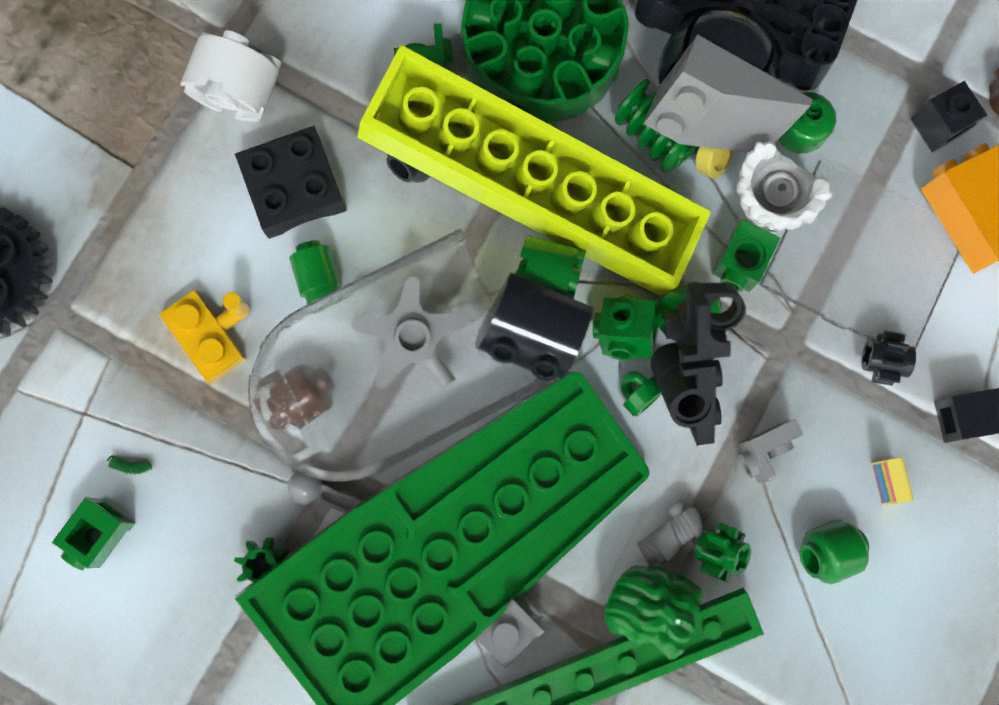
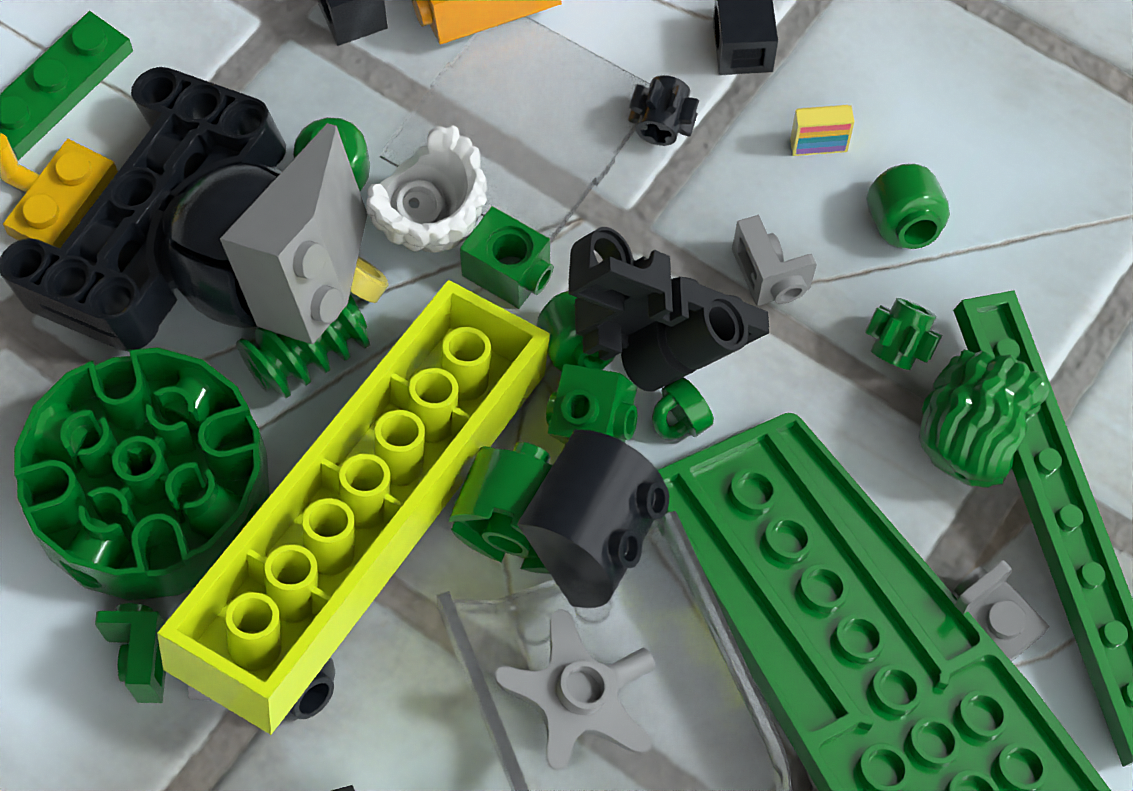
camera: 80 degrees left, 15 degrees down
(668, 538) = (883, 400): light grey arm -> none

